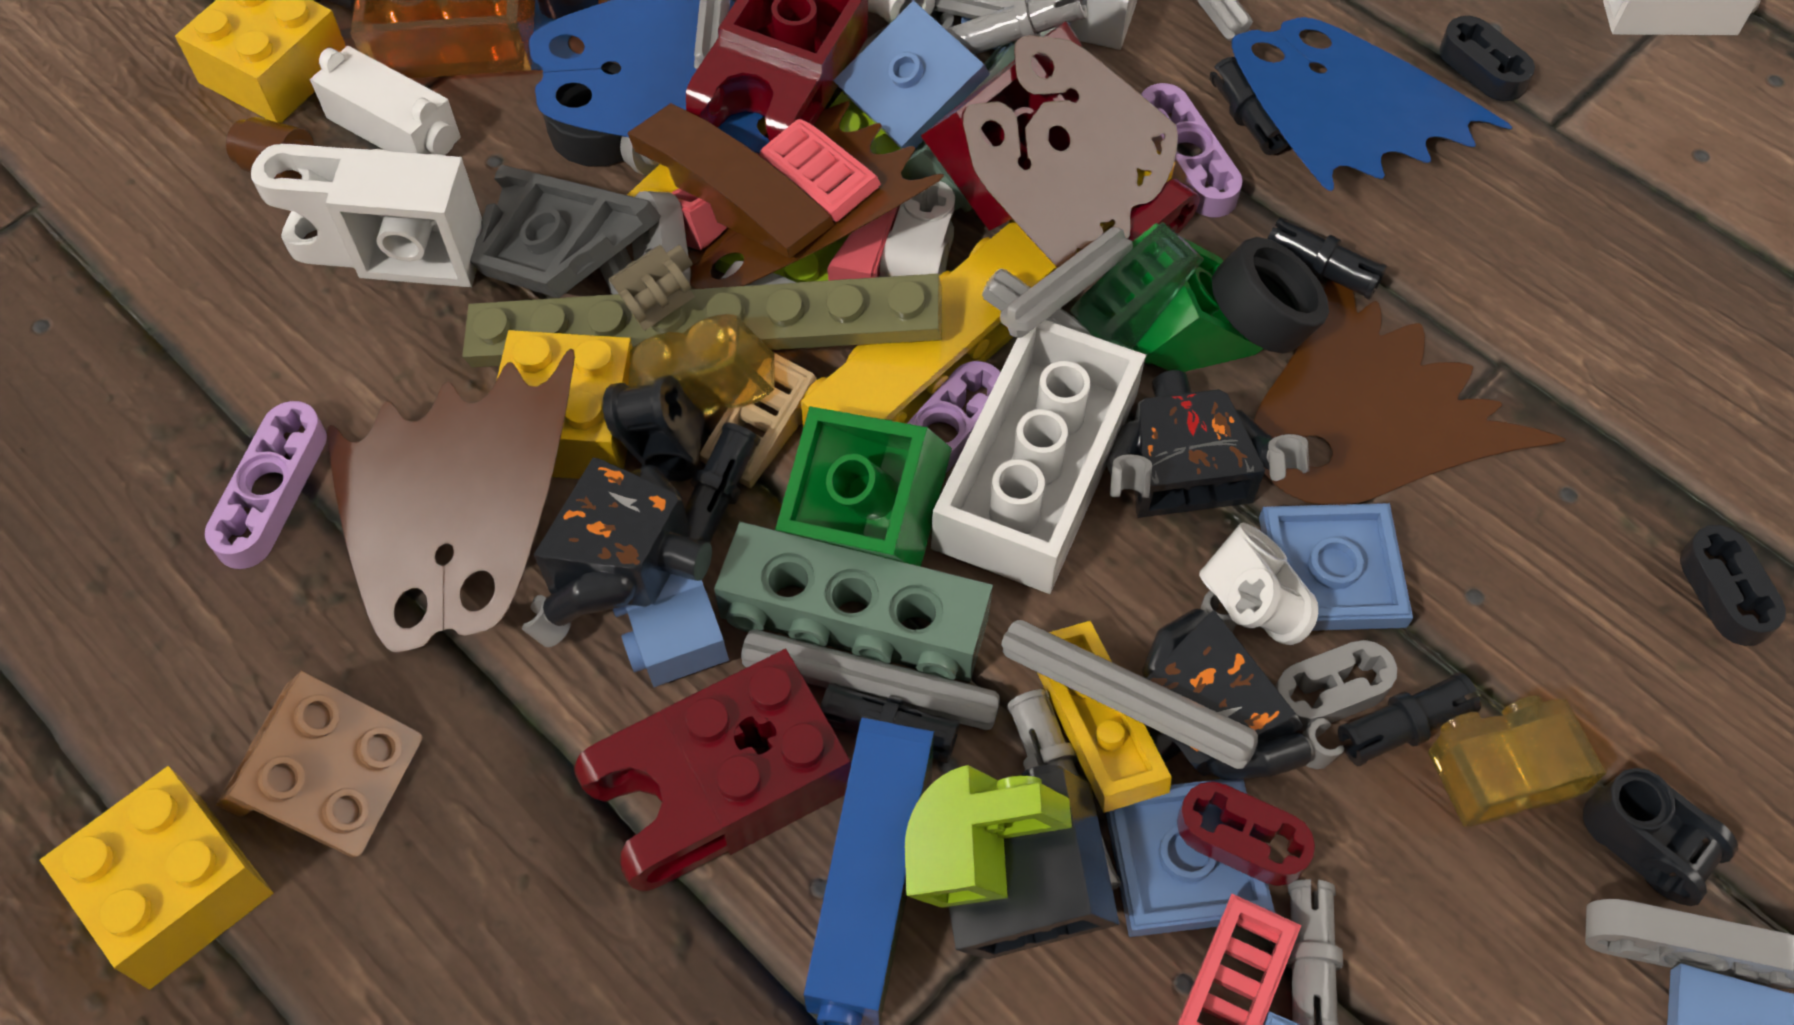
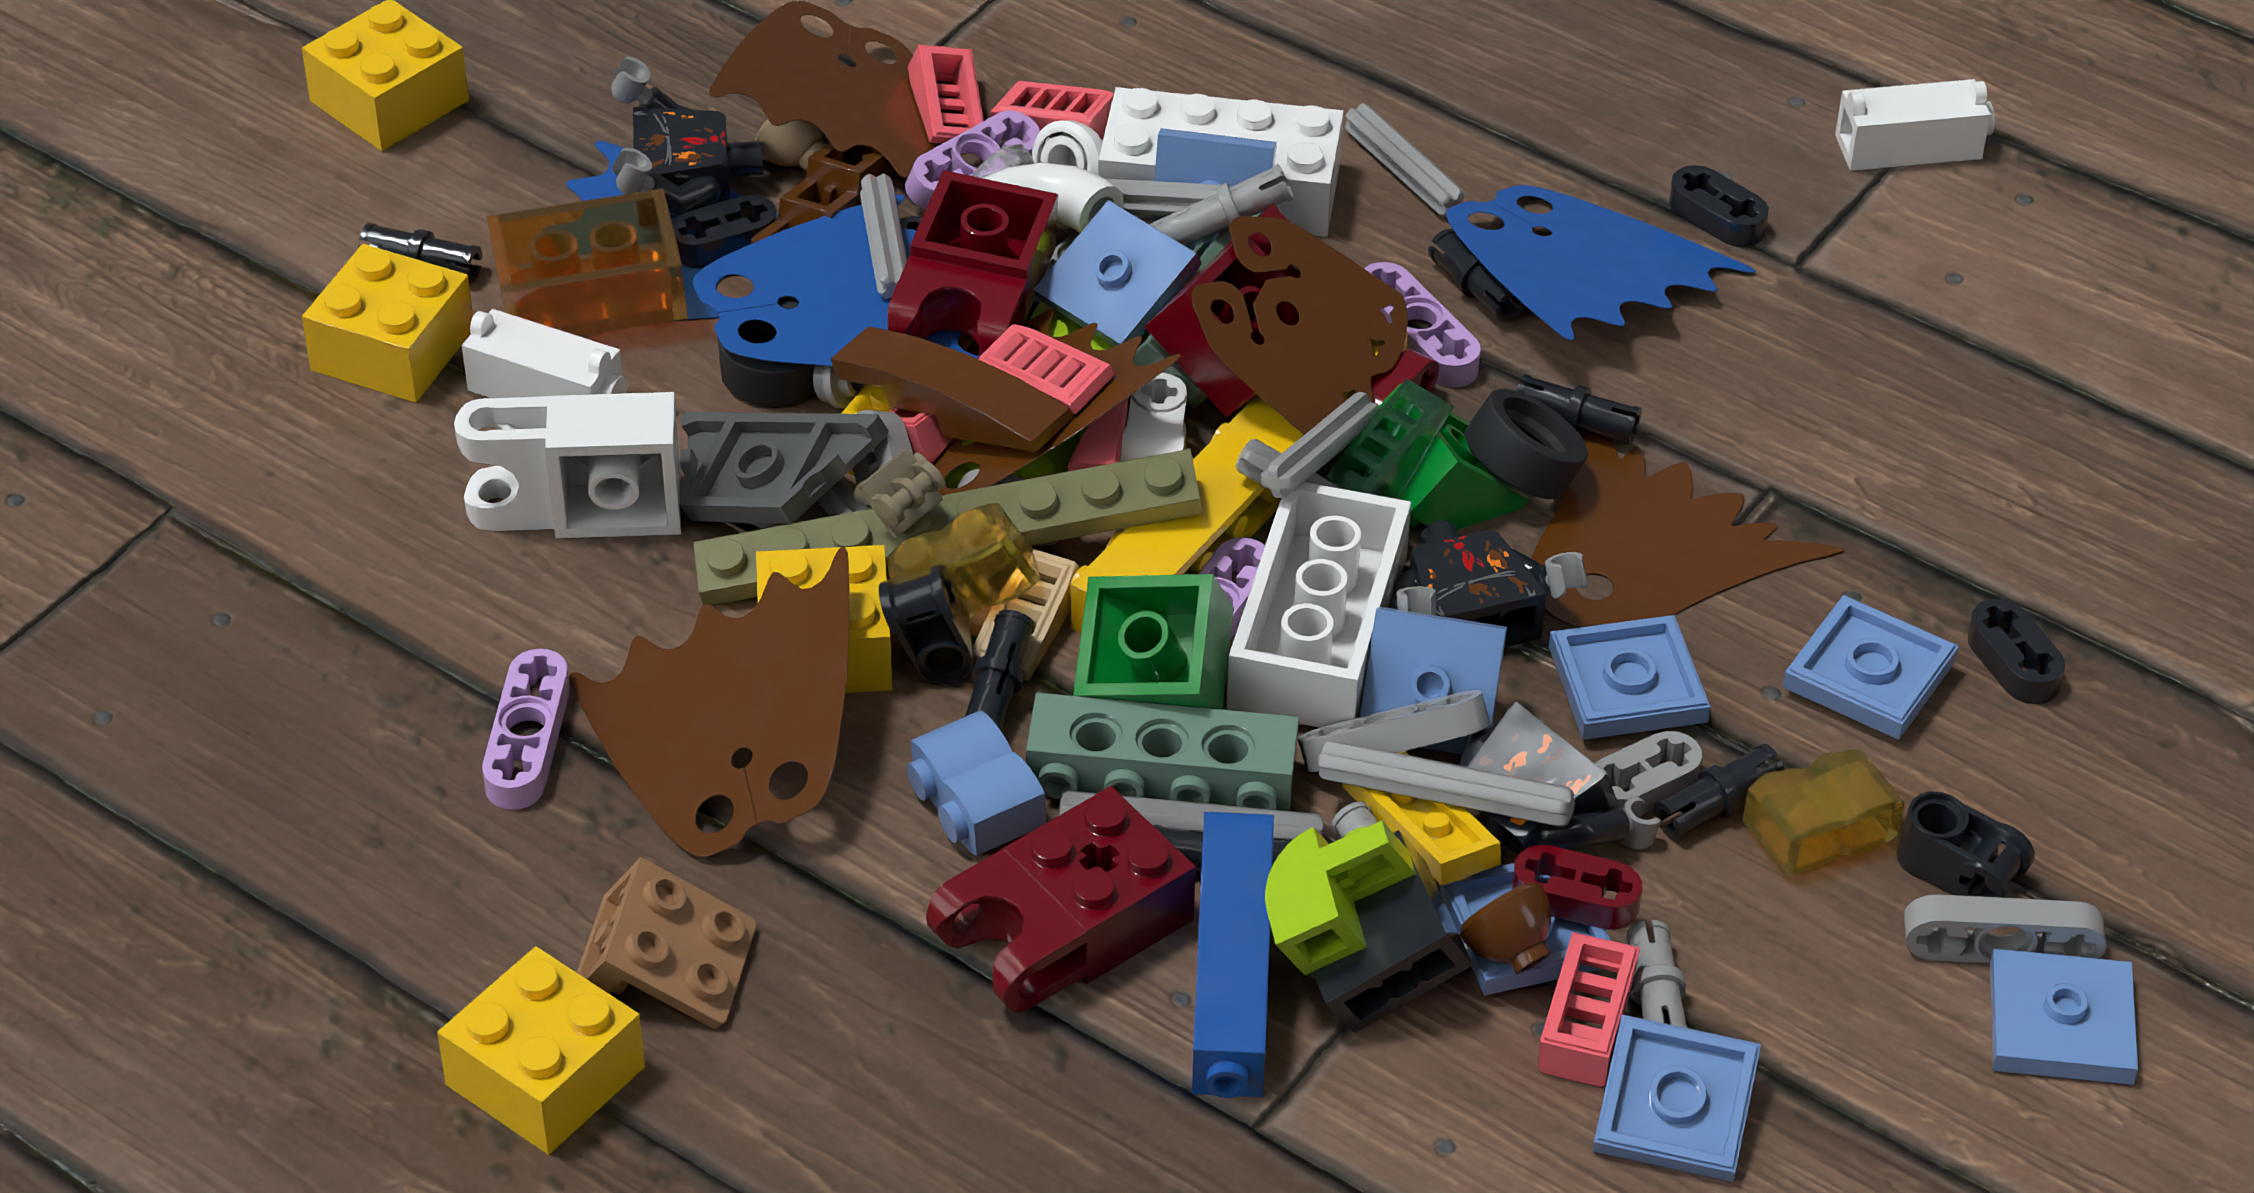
camera: 10 degrees left, 15 degrees down
(252, 136) = (422, 421): reddish brown brick -> none
(613, 547) = (920, 718): black torso -> none
(1093, 609) = (1403, 726): none -> light grey beam
(1133, 556) = (1428, 658): none -> medium blue plate
(1167, 886) = (1512, 928): none -> reddish brown brick
(1260, 586) = (1559, 692): white piece -> none
(1582, 588) = (1870, 667): none -> medium blue plate

